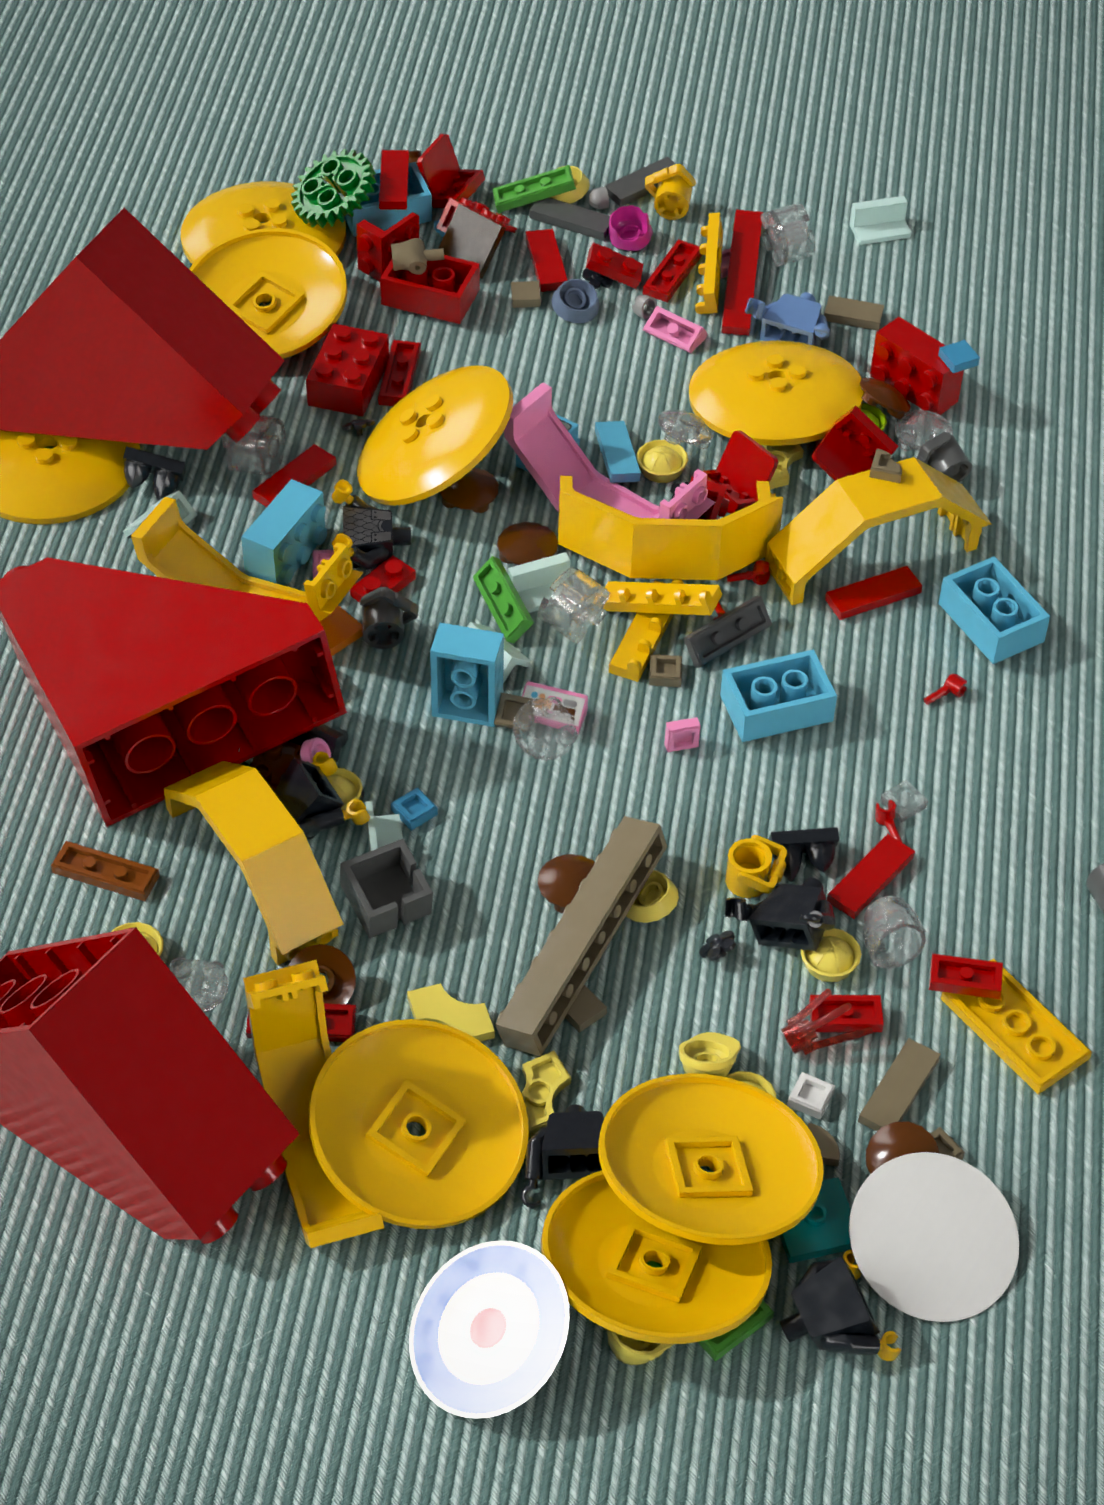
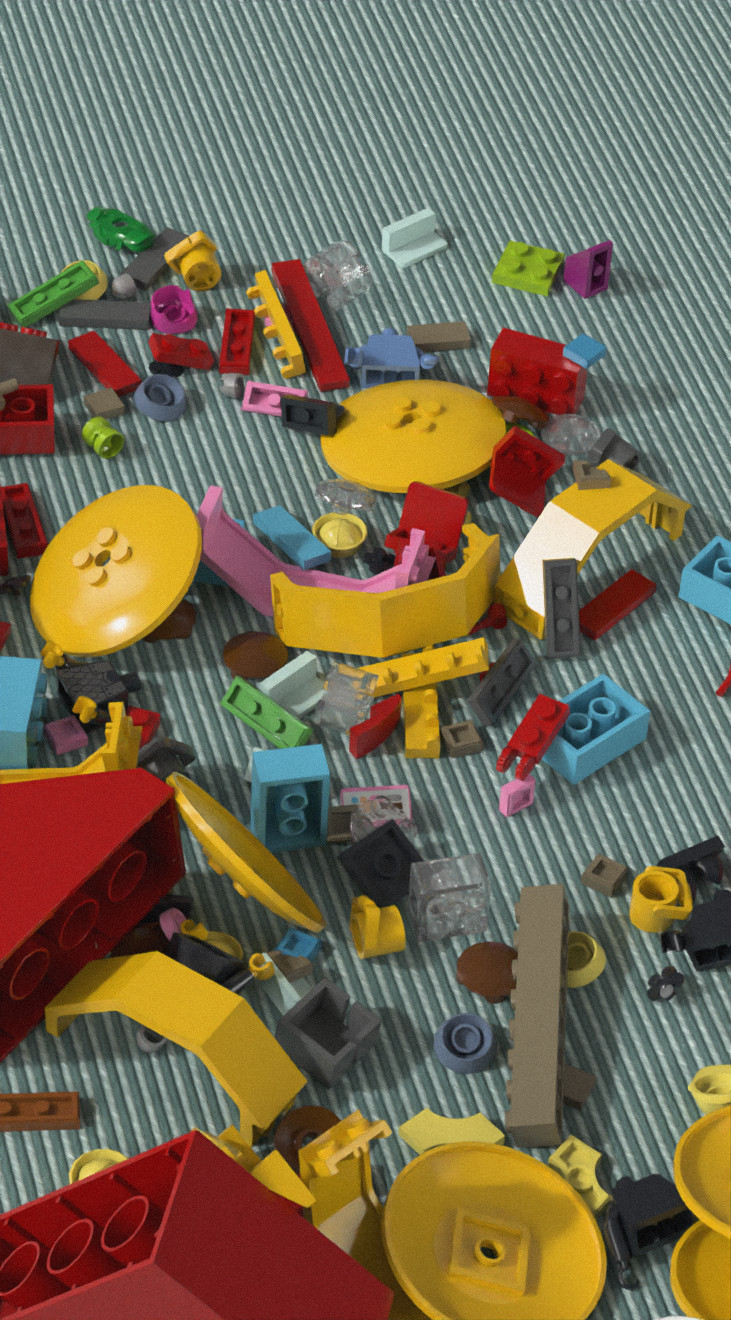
camera: 25 degrees left, 5 degrees down
(215, 976) = (271, 1171): none -> yellow slope
(387, 708) = (242, 856): none -> yellow dish
(391, 821) = (290, 966): none -> dark tan tile
(485, 813) = (375, 929): none -> yellow piece
(505, 321) = (101, 436): none -> lime wheel
(509, 938) = (465, 1043): none -> sand blue hat
(525, 760) = (381, 864): none -> black plate
(561, 805) = (449, 897): none -> clear brick
(586, 641) = (374, 731): none -> red slope
(631, 157) = (134, 235): none -> green piece
(693, 349) = (310, 414): none -> black tile
(714, 686) = (533, 736): none -> red hinge
(723, 830) = (604, 875): none -> dark tan tile
(810, 579) = (561, 607): none -> dark grey tile
(972, 273) = (528, 268): none -> lime plate
(1023, 288) = (589, 269): none -> magenta slope

